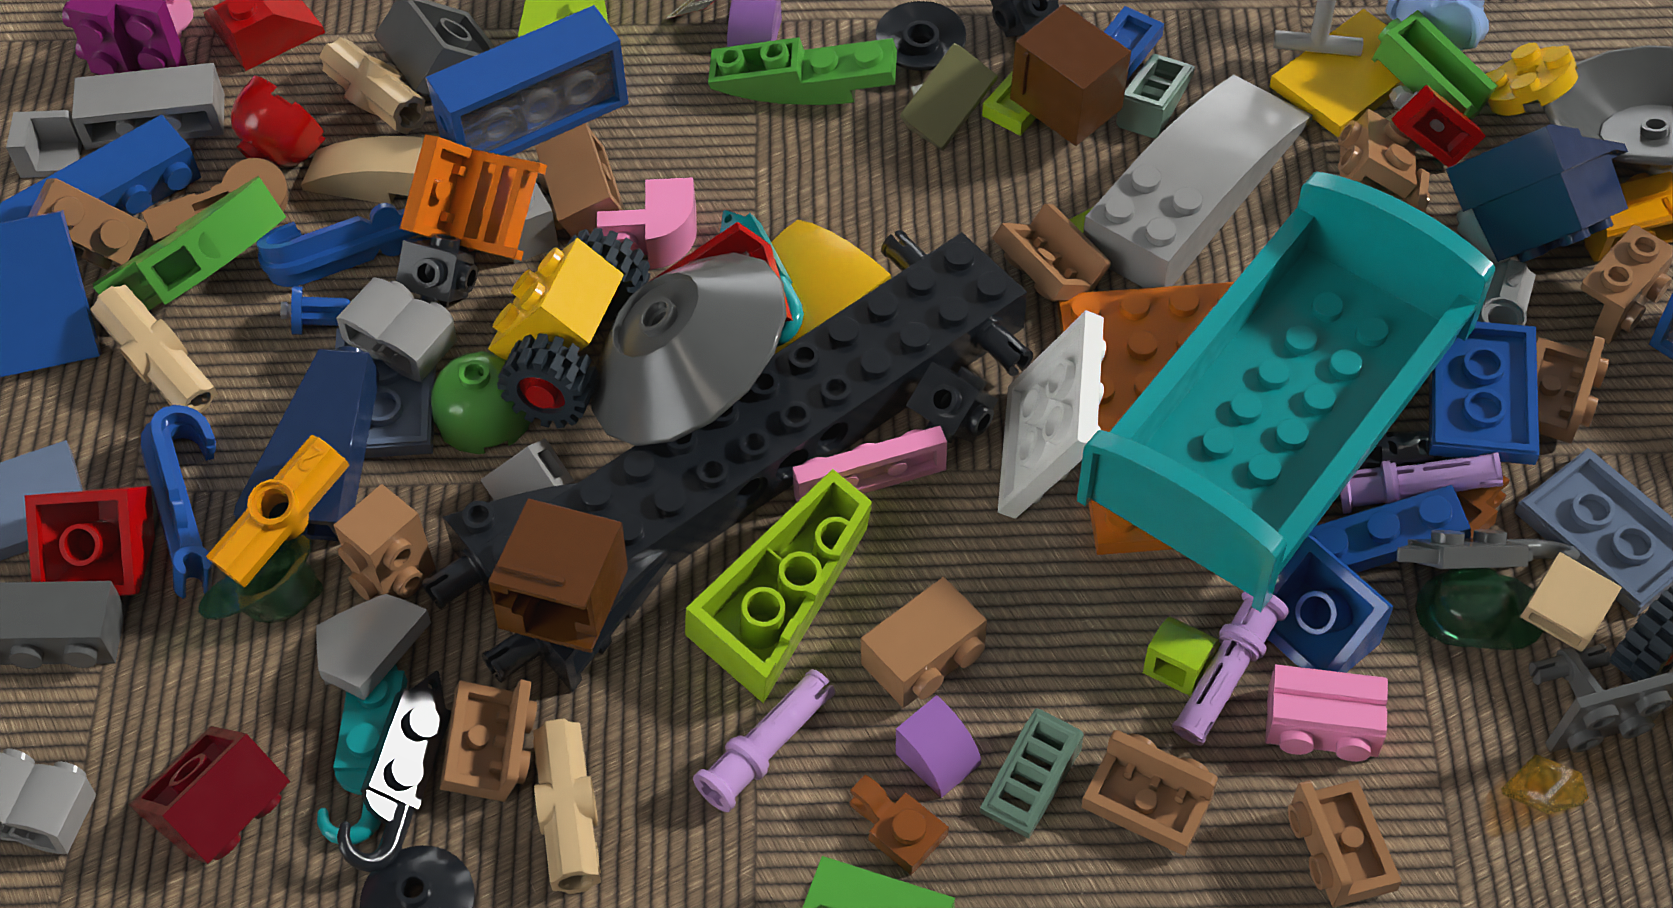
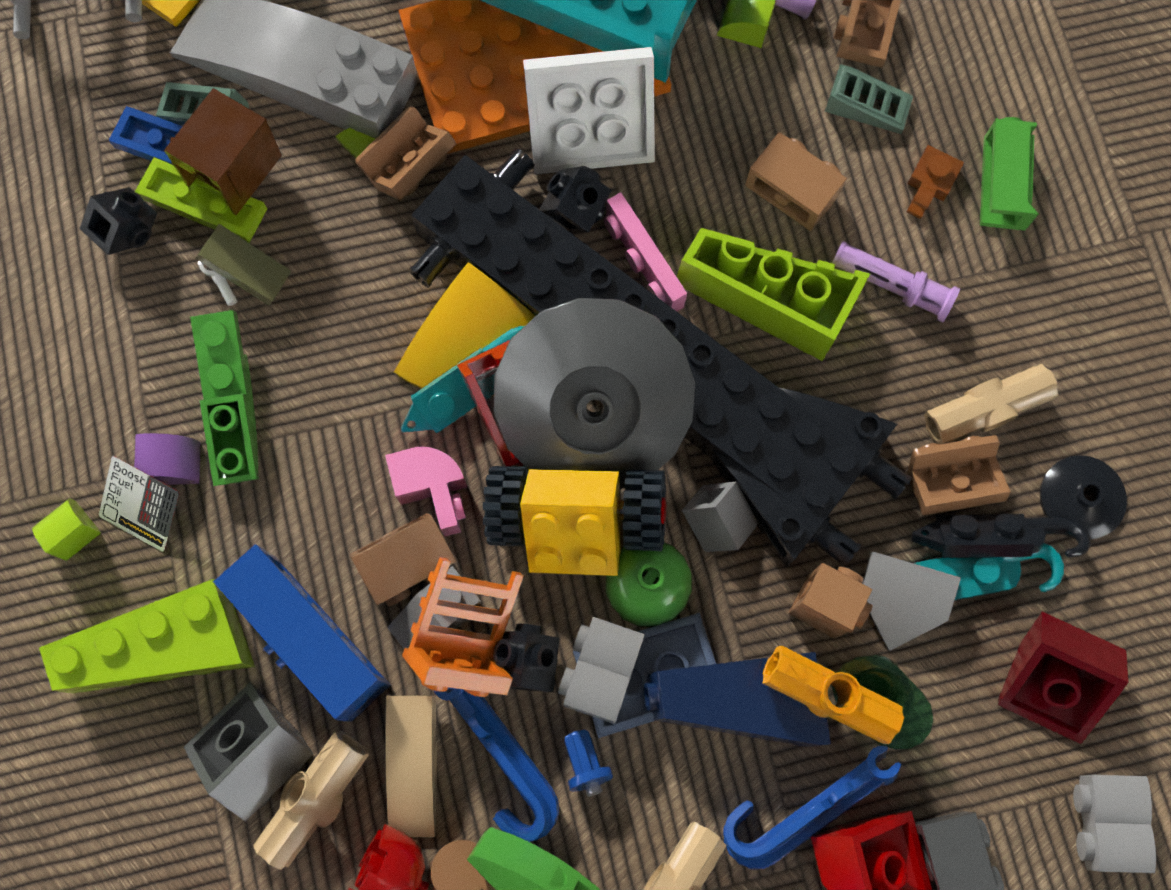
camera: 105 degrees left, 20 degrees up
(559, 575) = (858, 425): reddish brown piece -> none
(921, 33) = (155, 293): black dish -> none
(937, 746) = (867, 165): medium lavender brick -> none

